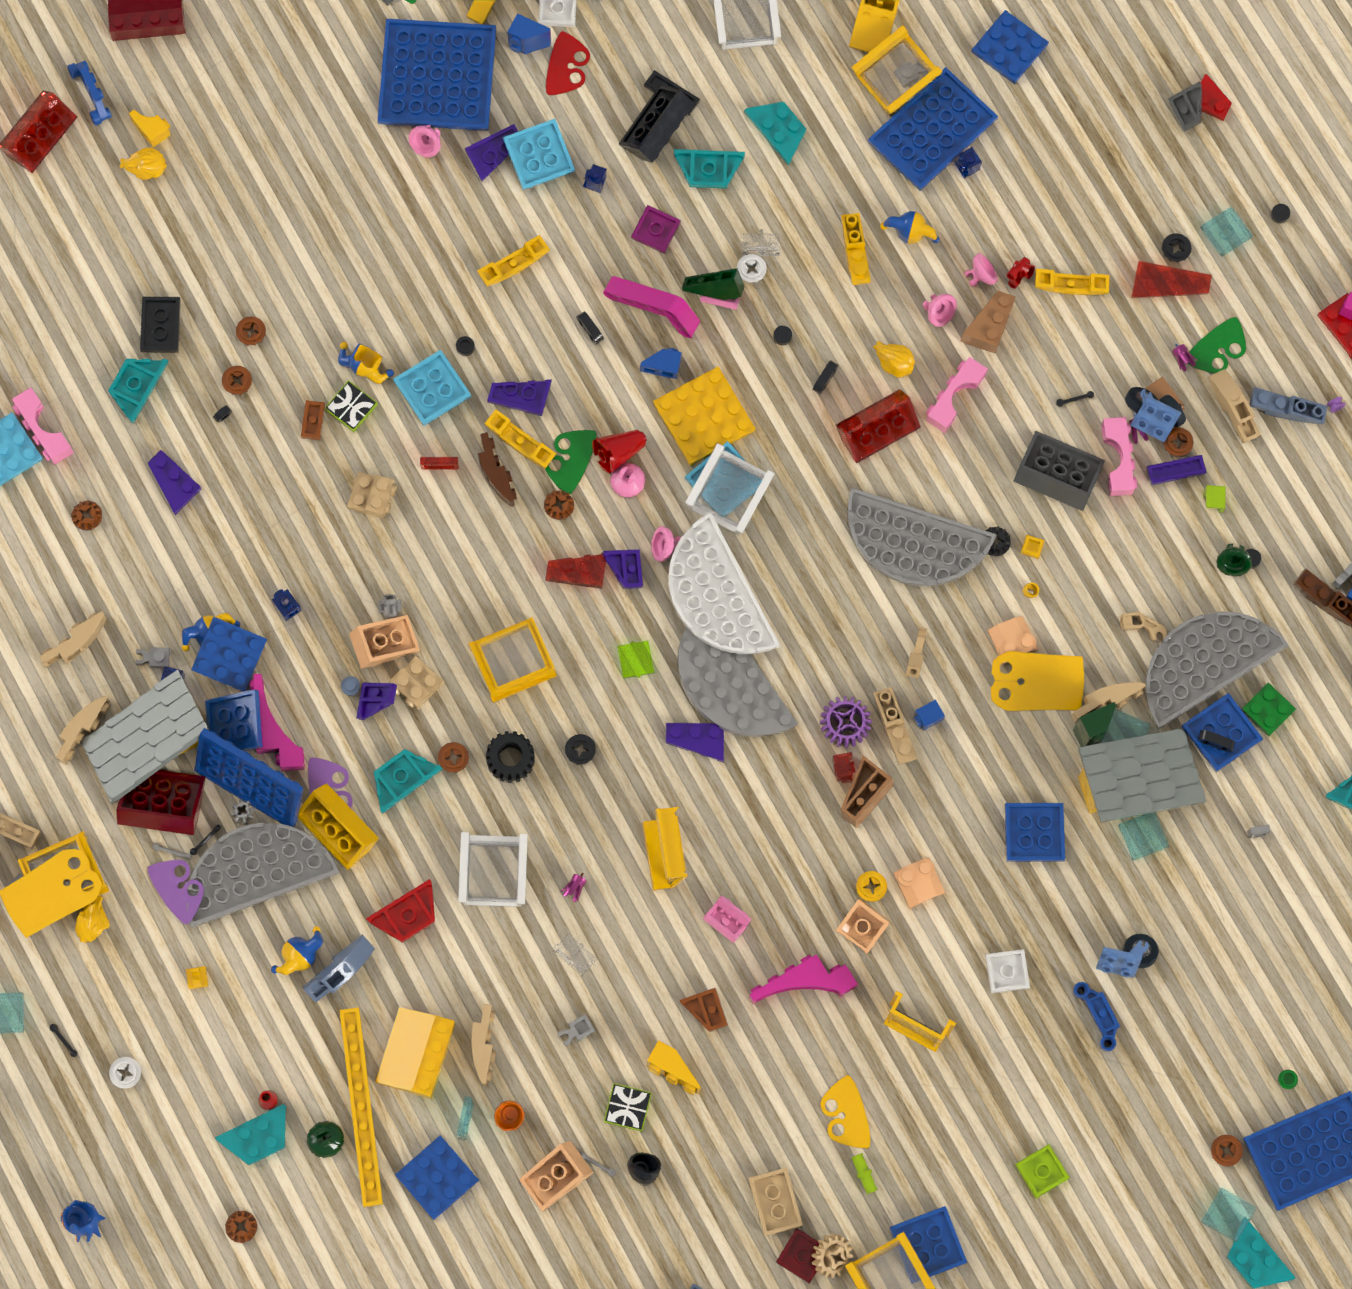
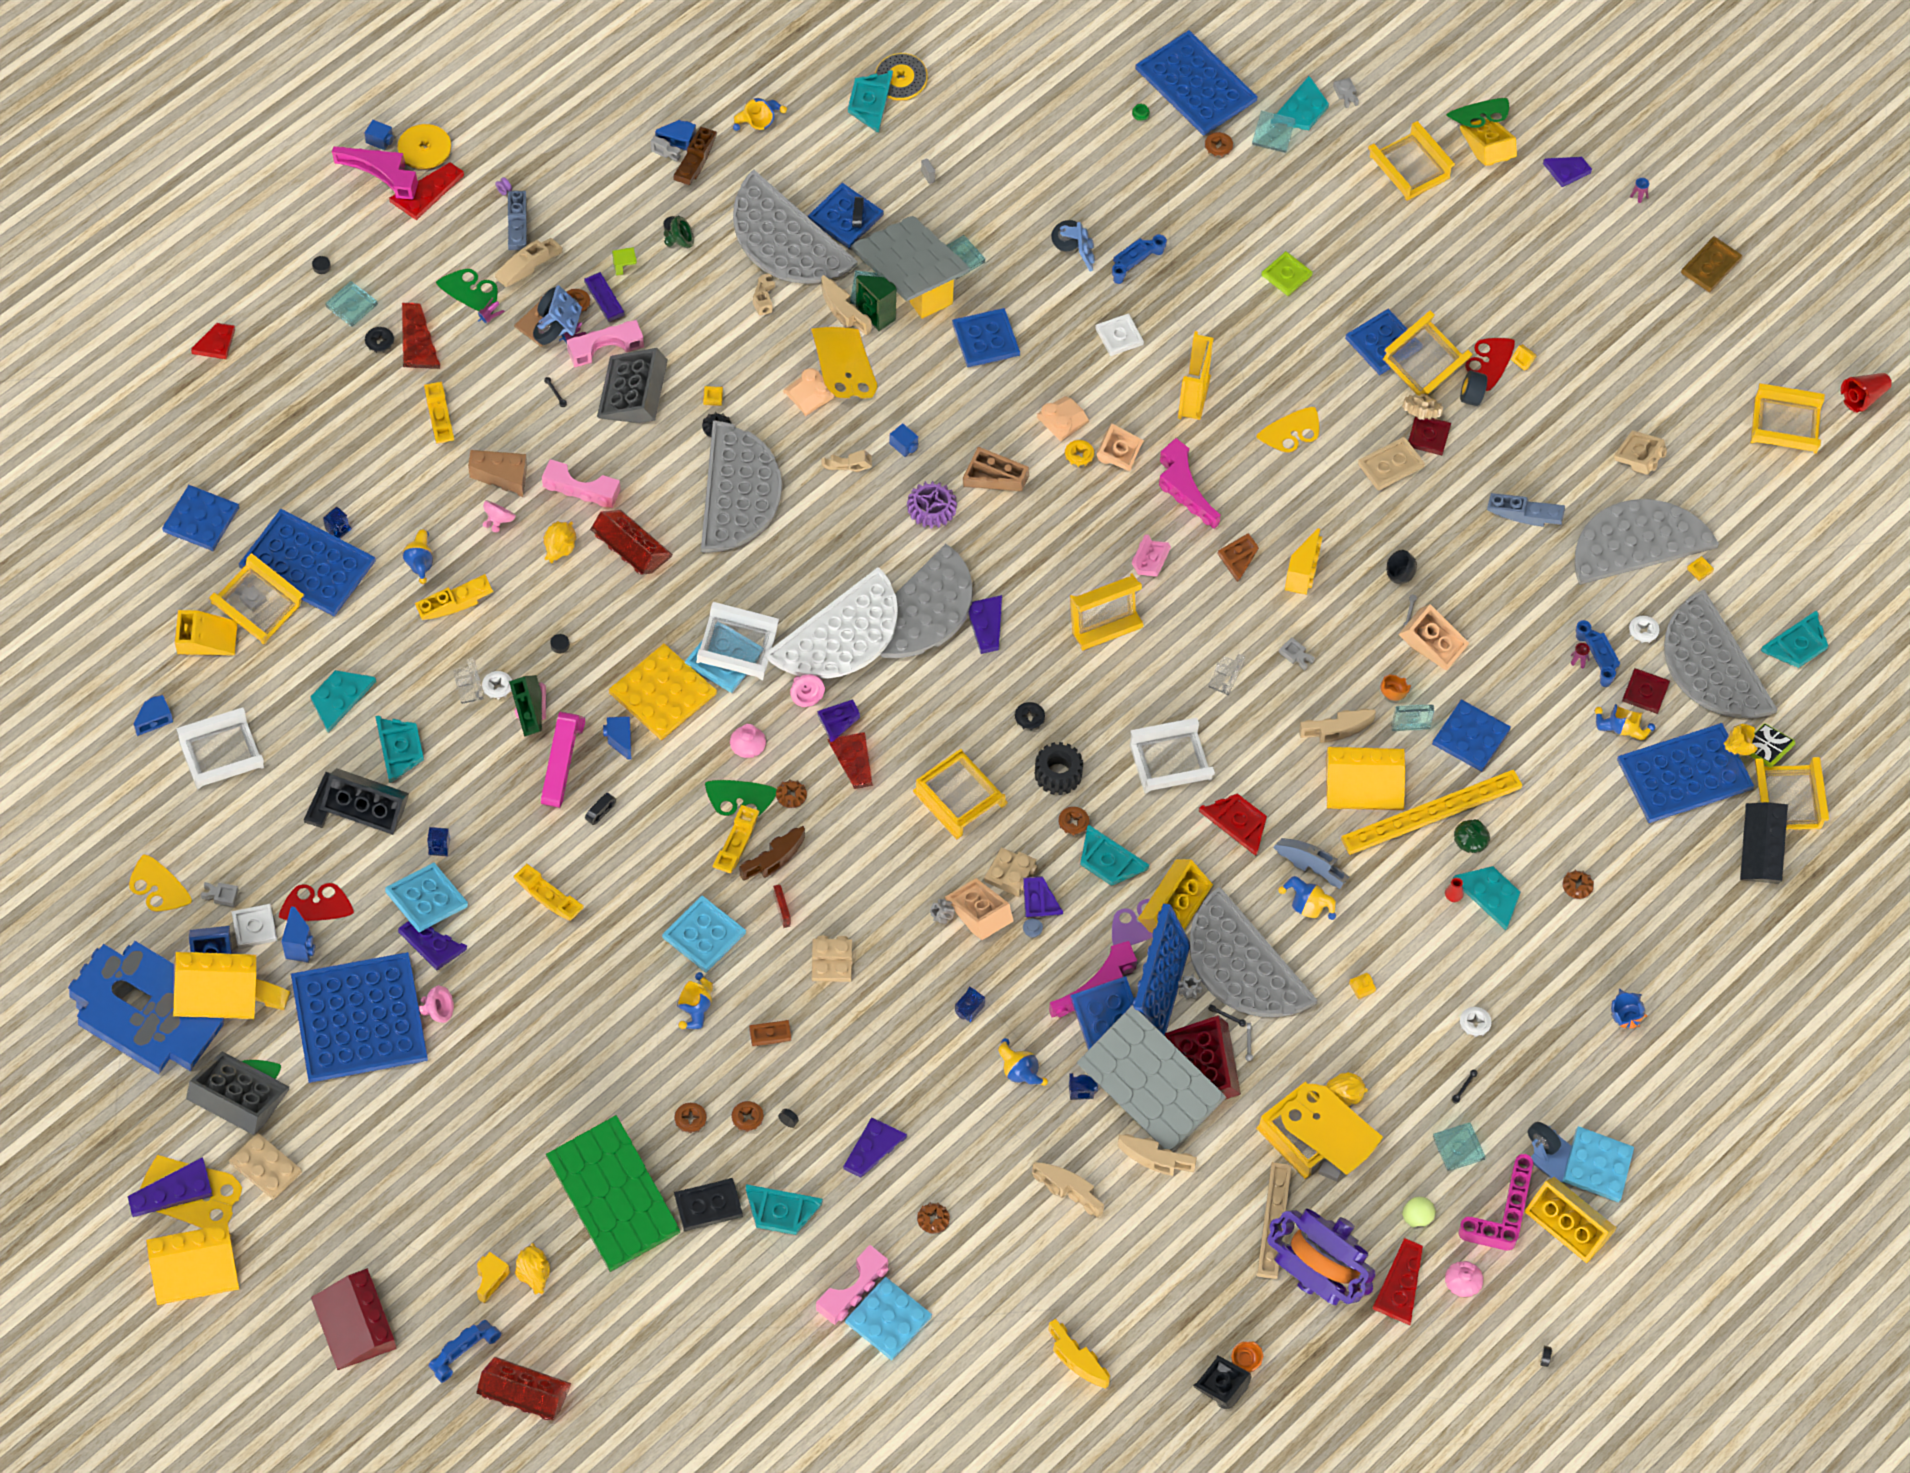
camera: 105 degrees left, 15 degrees down
(156, 657) = (1060, 1111): light grey plate -> none
(176, 899) = (1283, 1036): medium lavender piece -> none
(187, 239) = (613, 1193): none -> green piece
(229, 654) = (1039, 1037): blue plate -> none
(351, 406) = (744, 1003): tile -> none
(465, 346) = (649, 918): black tile -> none
(521, 396) = (688, 851): dark purple wing -> none
(576, 883) = (1160, 687): flat silver piece -> none
(618, 448) = (722, 751): red cone -> none
(627, 1107) = (1350, 598): tile -> none
(635, 659) = (925, 692): clear neon green piece -> none
(655, 229) = (477, 779): magenta tile -> none
(825, 377) = (594, 595): black beam -> none
(843, 767) = (975, 497): clear red brick -> none
(864, 1173) = (1340, 402): lime pin -> none
(894, 726) = (923, 466): tan slope -> none
(982, 271) = (449, 488): bright pink hair -> none
(1019, 270) = (437, 457): red plate -> none
(1031, 587) = (757, 386): yellow hinge -> none
(1188, 106) = (230, 355): dark grey wing -> none
(1268, 709) = (811, 186): green plate -> none

